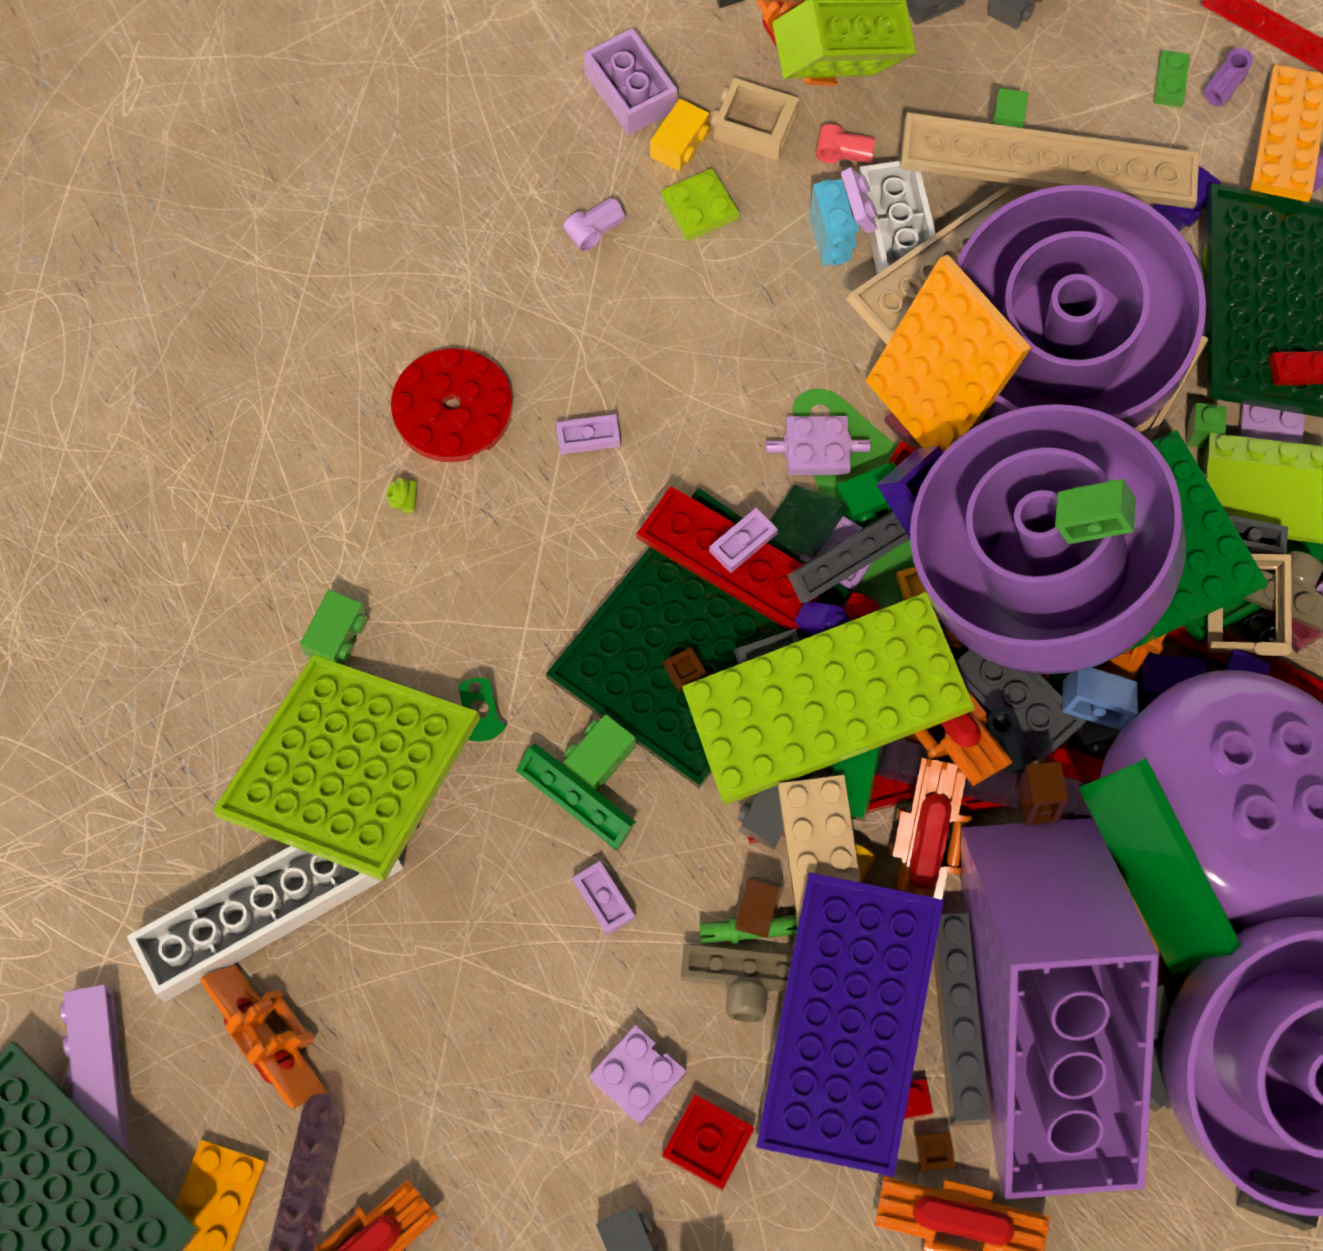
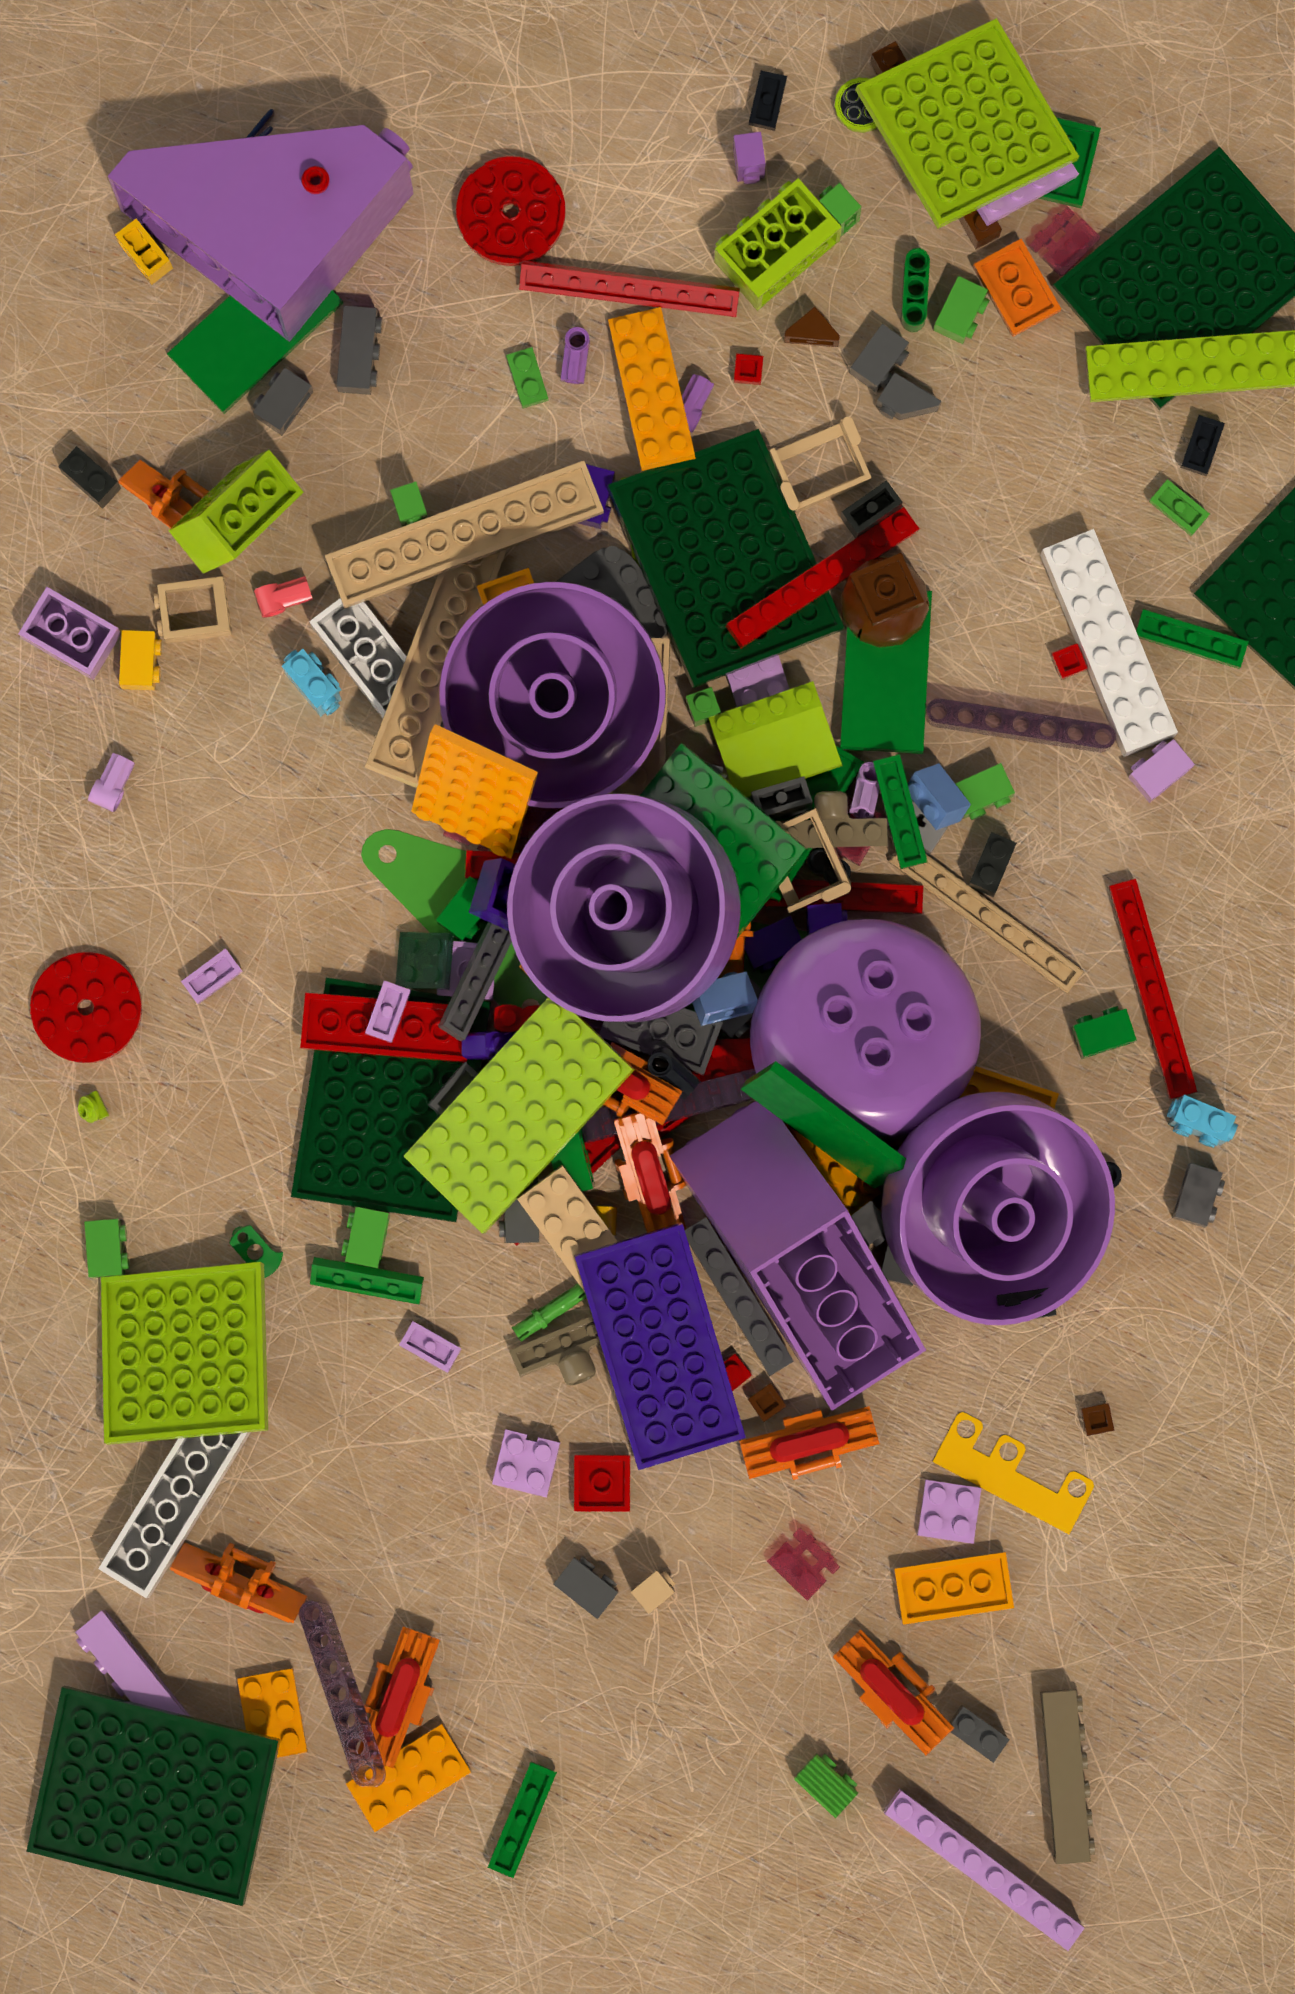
camera: 25 degrees left, 15 degrees up
(684, 669) = (397, 1138): reddish brown plate -> none
(699, 204) = (189, 715): lime plate -> none
(758, 906) = (549, 1291): reddish brown slope -> none
(817, 445) = (401, 887): lavender plate -> none
(862, 207) = (327, 660): lavender plate -> none
(1042, 792) = (715, 1104): reddish brown brick -> none
(1095, 511) = (650, 892): bright green brick -> none

